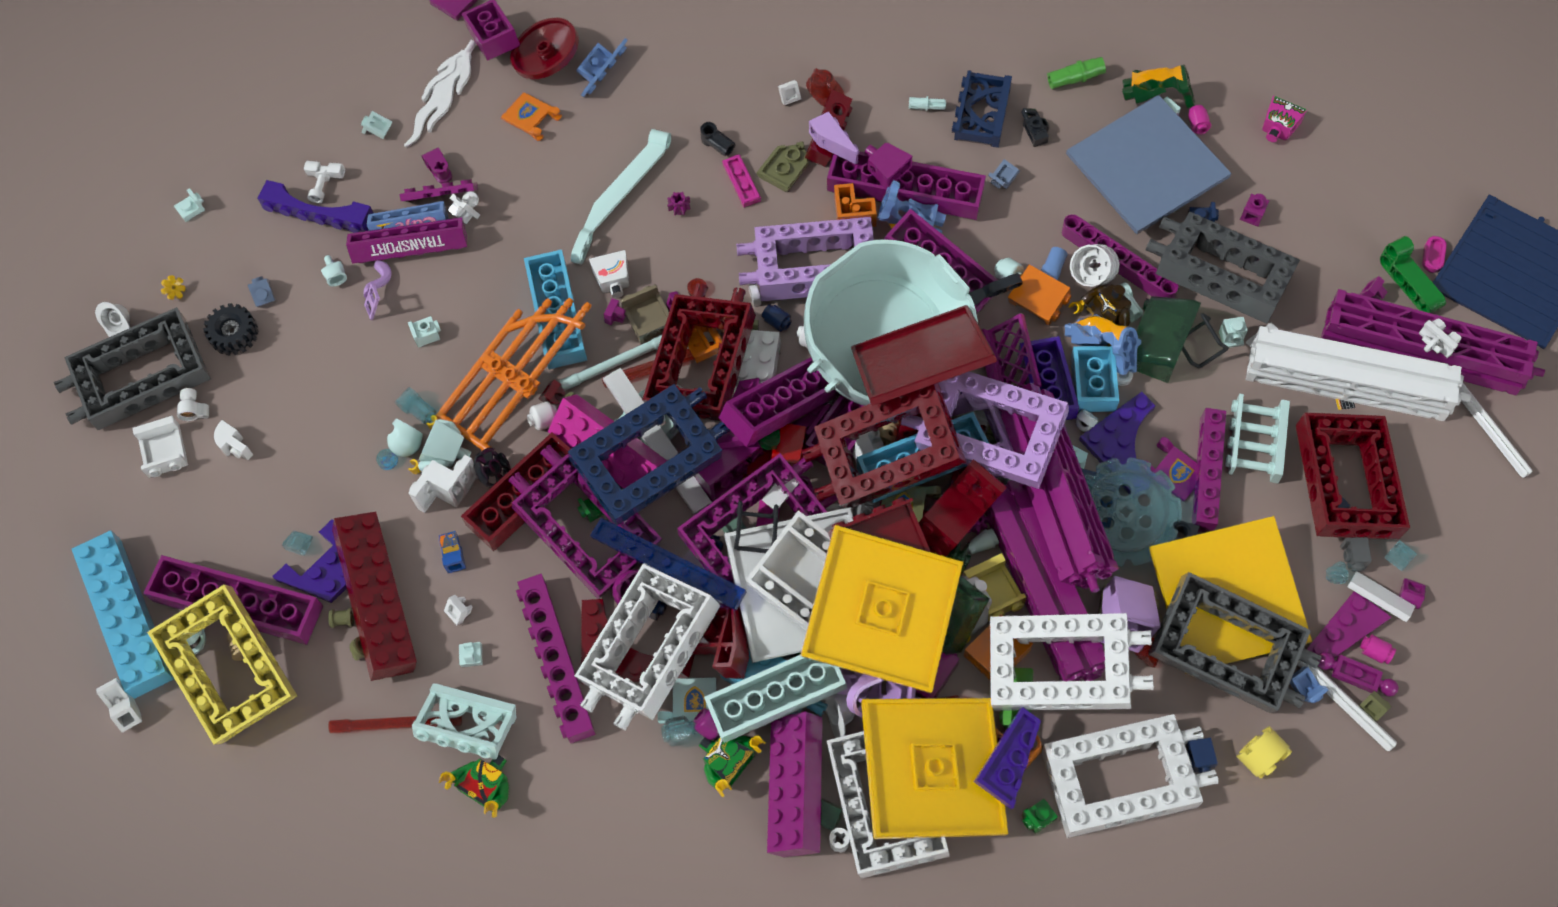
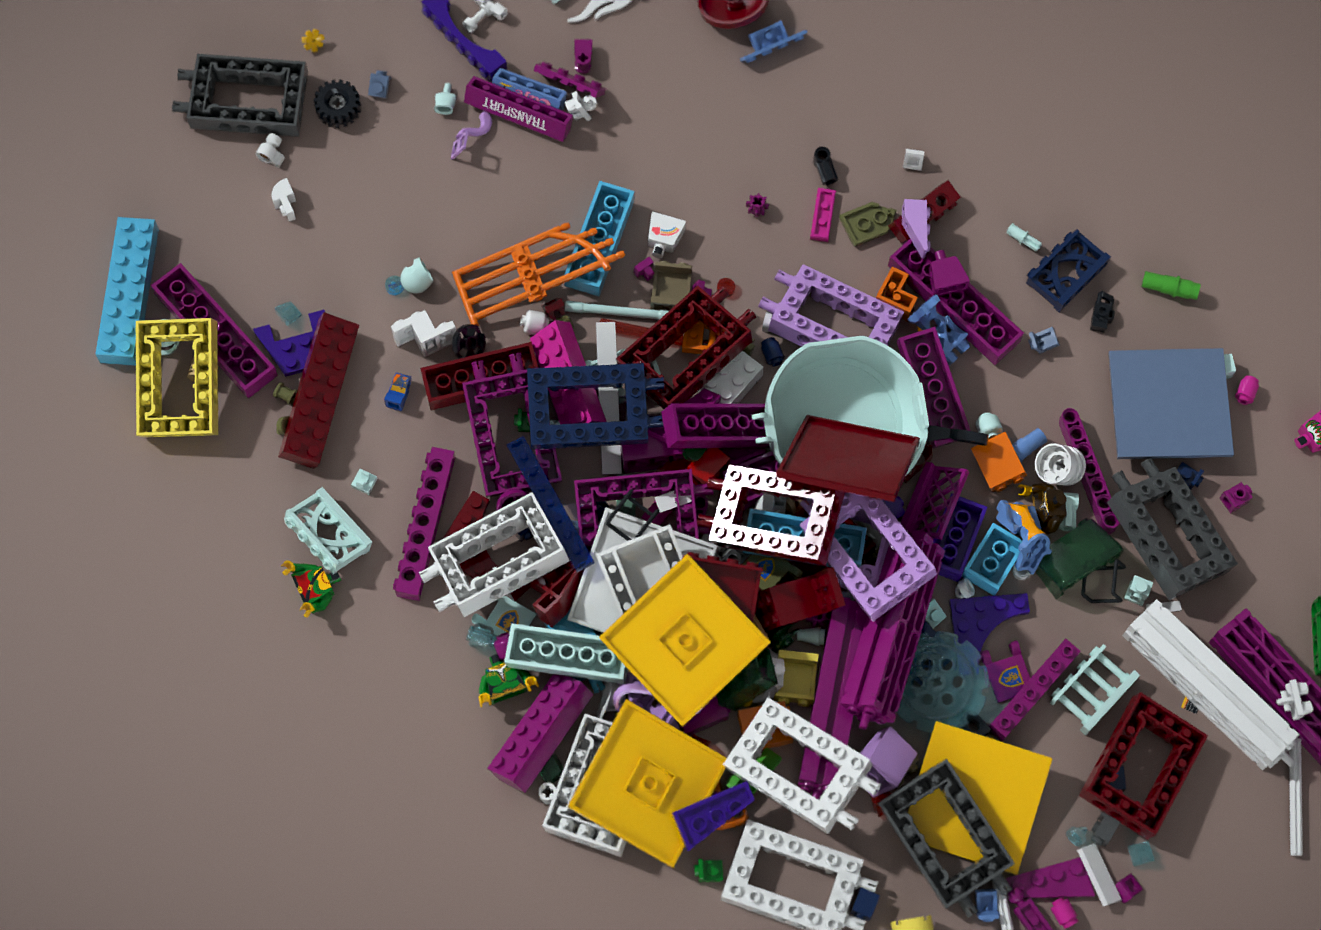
camera: 25 degrees right, 5 degrees up
(112, 317) = (252, 41): white piece -> none
(121, 706) = (87, 363): white brick -> none
(161, 446) = (229, 171): white panel -> none
(348, 725) = (243, 481): clear red piece -> none
(412, 403) = (441, 252): clear light blue piece -> none
(425, 331) = (486, 195): light aqua brick -> none
(441, 445) = (441, 300): light aqua torso -> none
(456, 609) = (374, 440): white tile -> none
(528, 113) = (685, 50): orange flag -> none
(618, 190) = (774, 141): light aqua piece -> none
(821, 84) = (946, 168): clear red piece -> none
(1153, 82) = (1224, 334): dark green hips -> none
(1375, 289) = (1285, 627): magenta tile -> none

